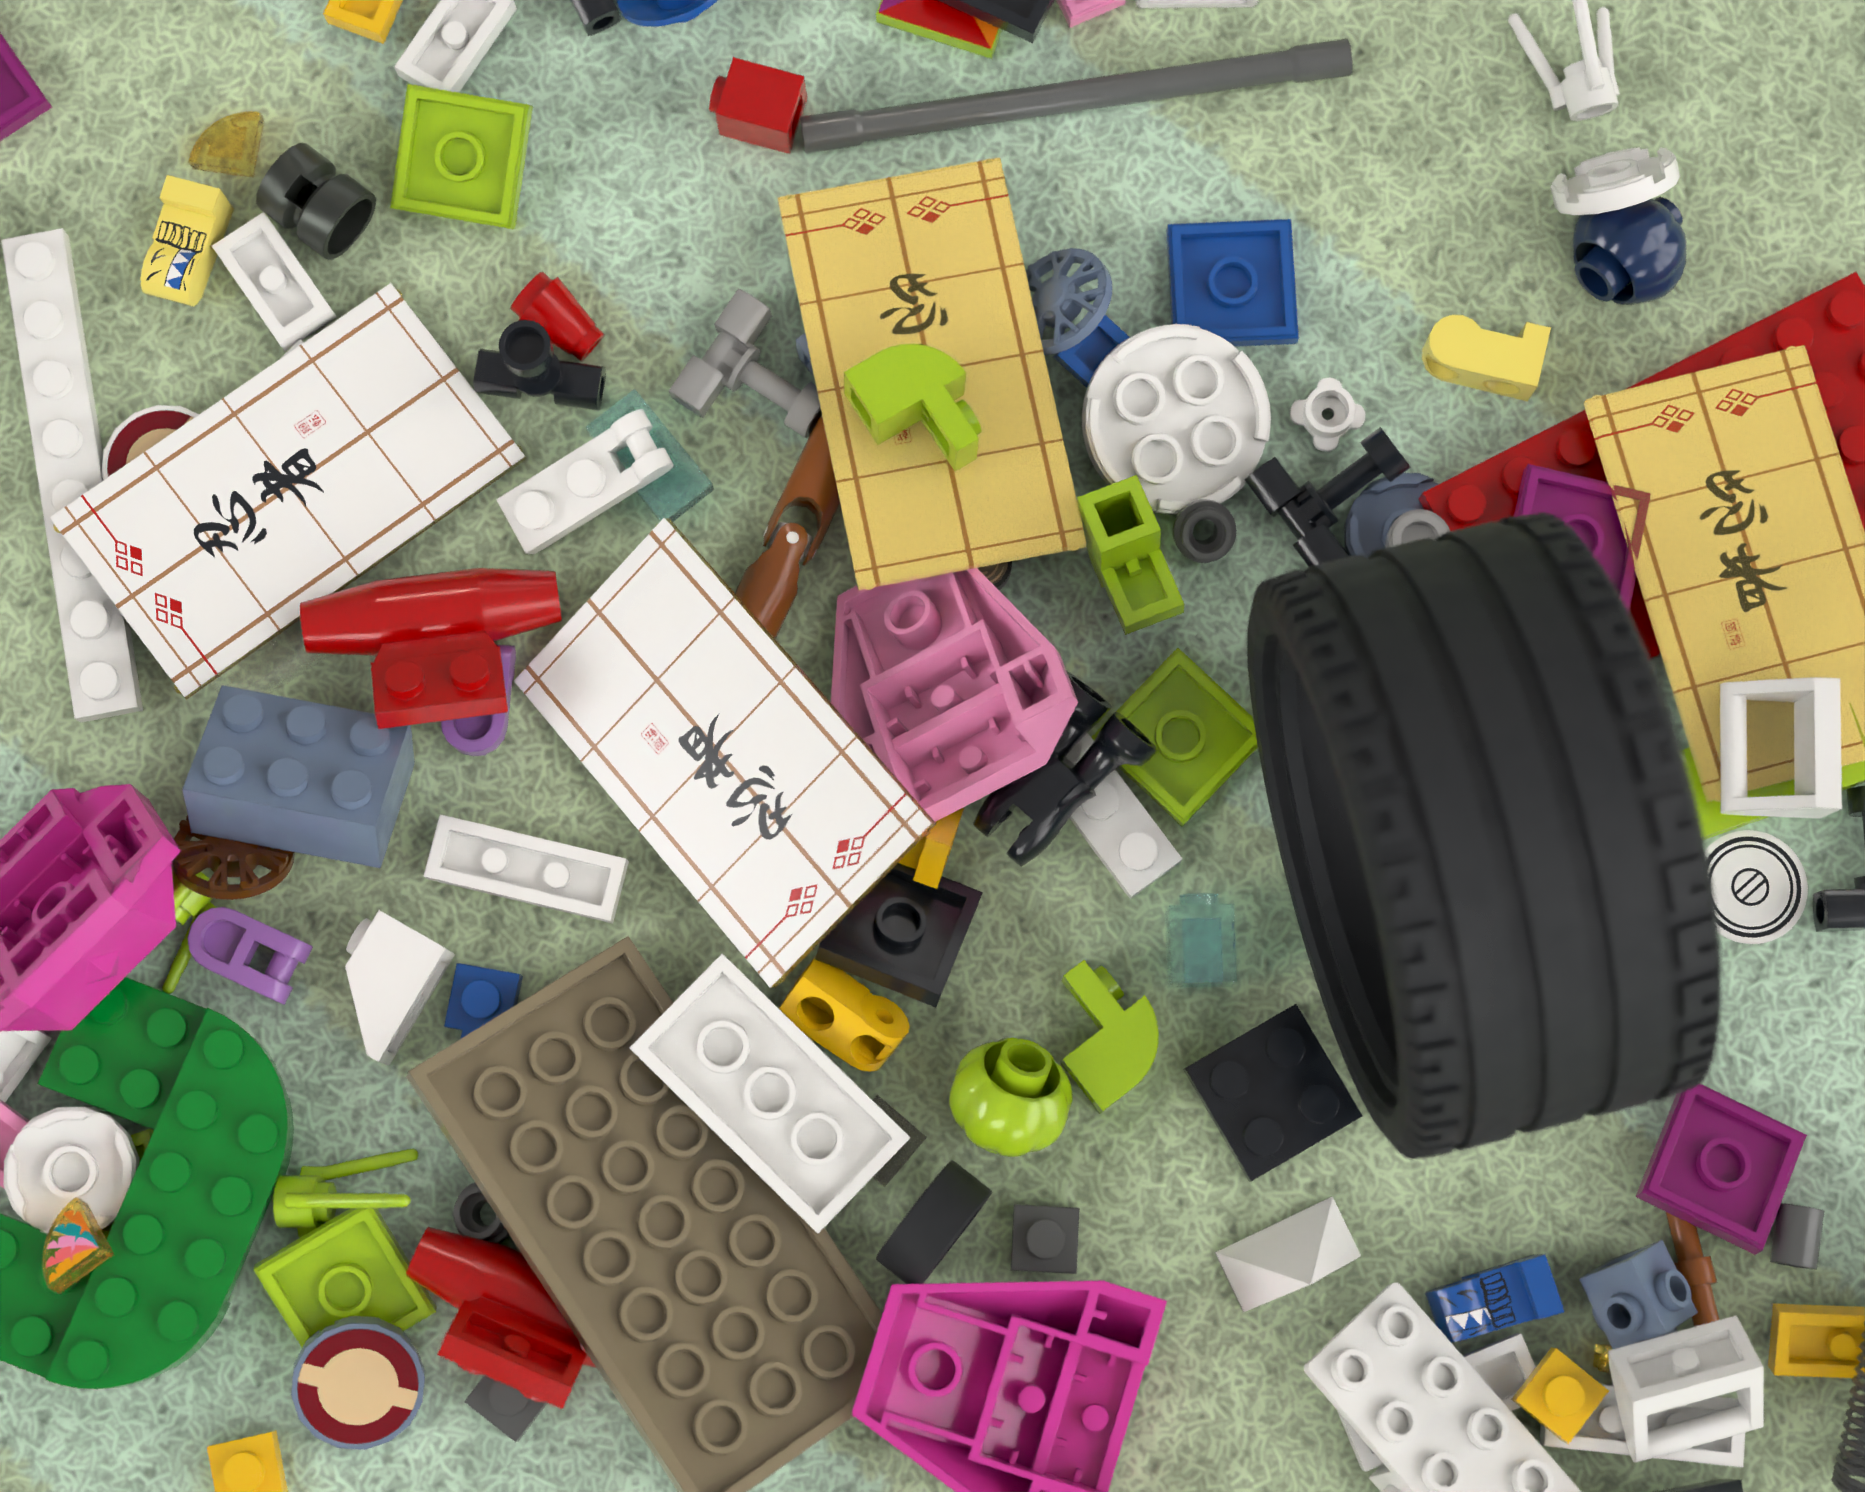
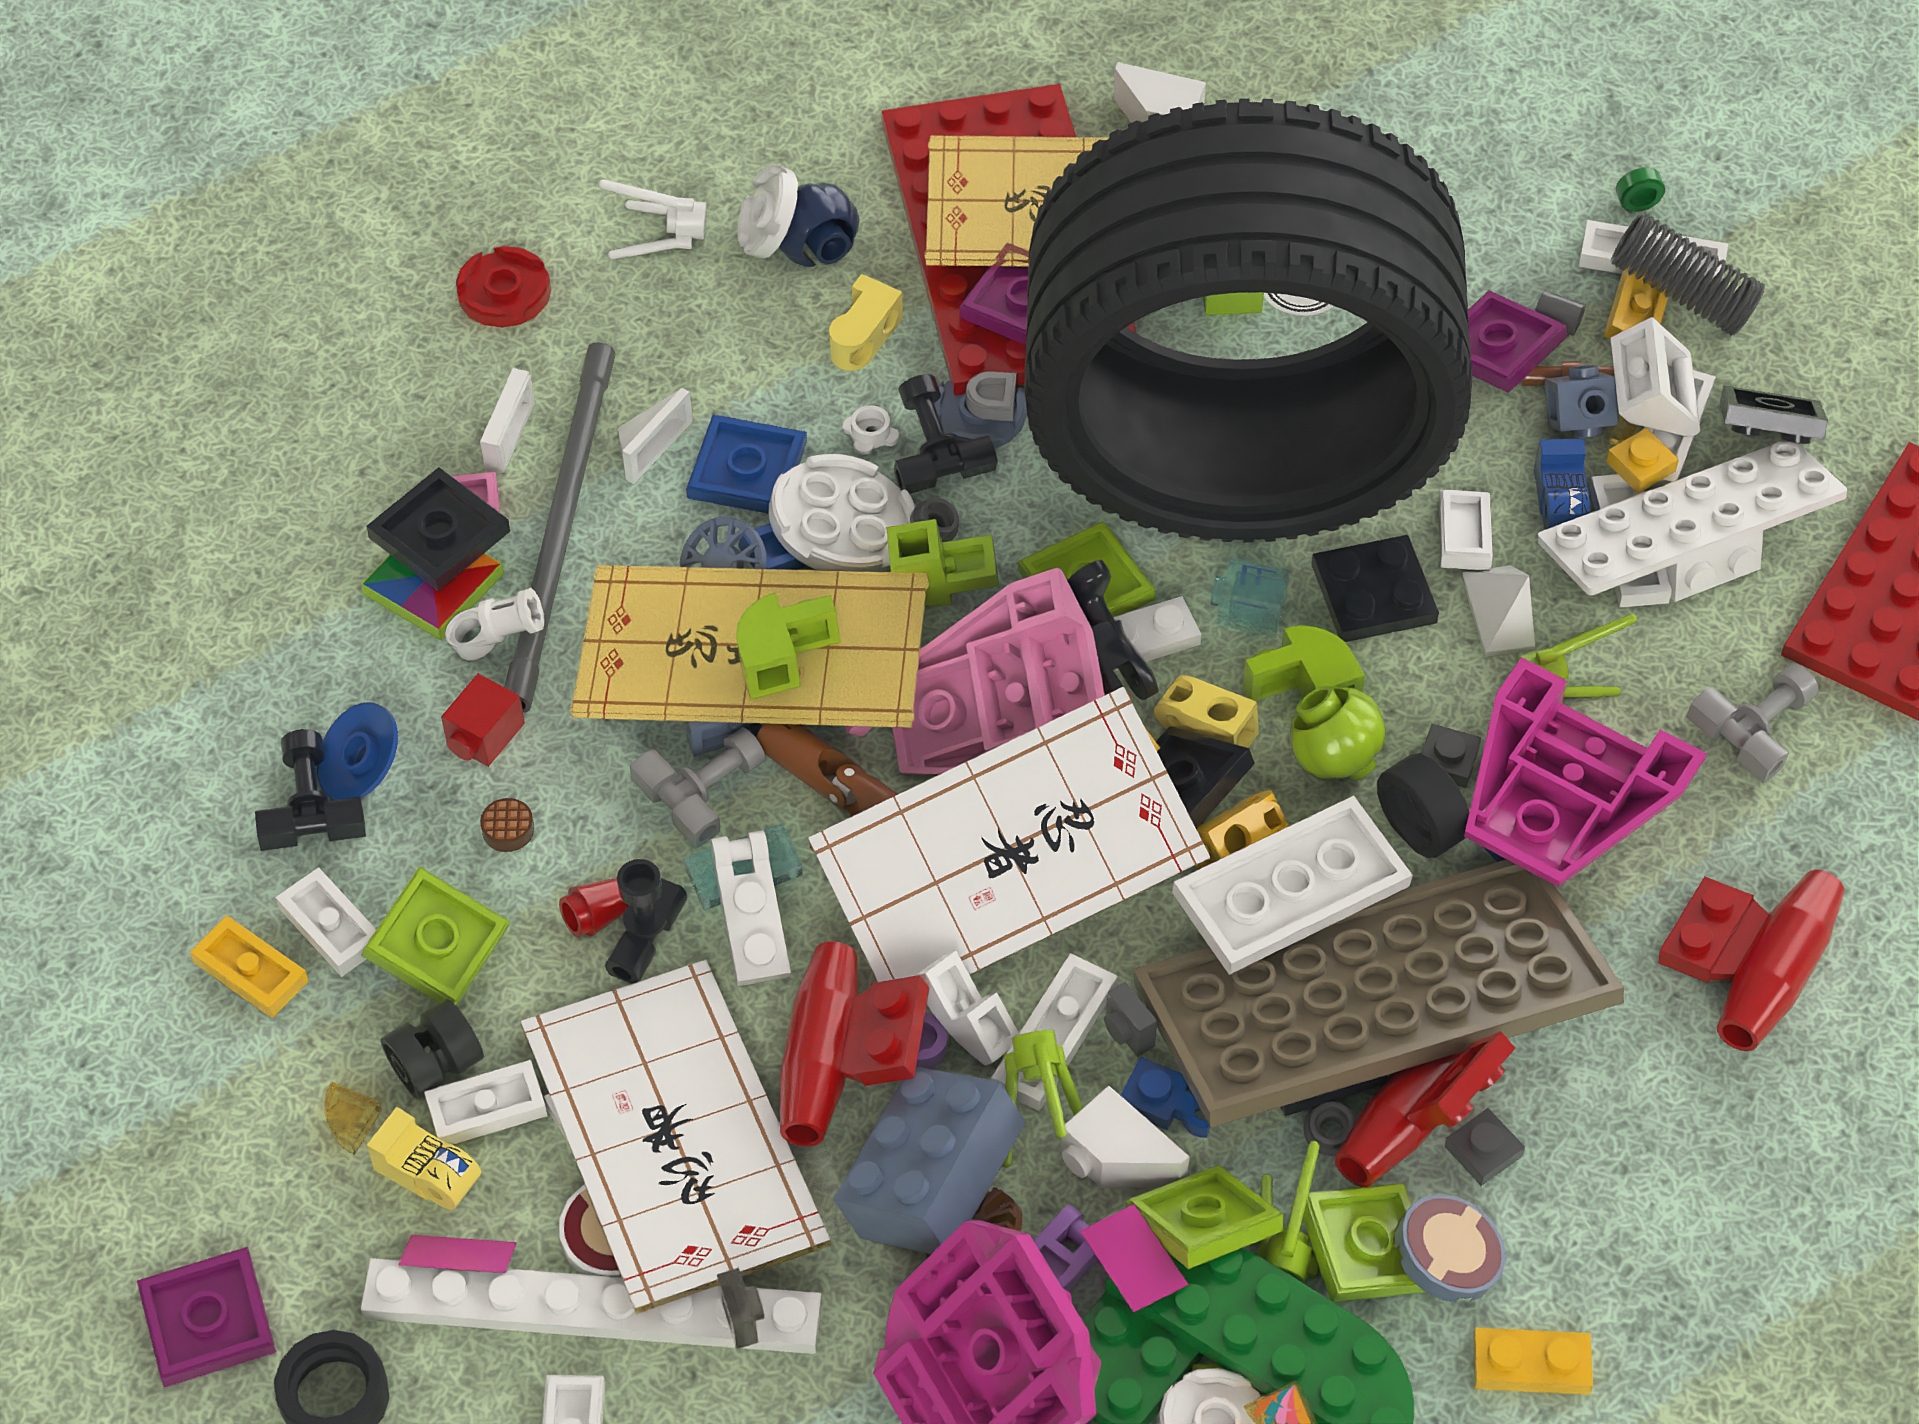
camera: 75 degrees left, 25 degrees down
(65, 625) = (741, 1307): none -> clear smoke plate
(91, 315) = (457, 1253): none -> dark pink sticker
(232, 1032) = (1134, 1258): none -> dark pink sticker
(314, 1097) = (1207, 1216): none -> lime tile
(457, 858) = (1041, 1059): none -> lime plant
(518, 761) = (974, 1022): none -> white slope
(557, 948) = (1130, 1020): none -> dark grey plate
(640, 181) = (507, 824): none -> reddish brown tile
(891, 73) = (496, 621): none -> white connector
(1007, 935) = (1208, 711): none -> light yellow leg
(1202, 1332) = (1553, 658): none -> lime plant
(1235, 153) = (652, 432): none -> white slope
(1390, 1189) = (1465, 530): none -> white tile

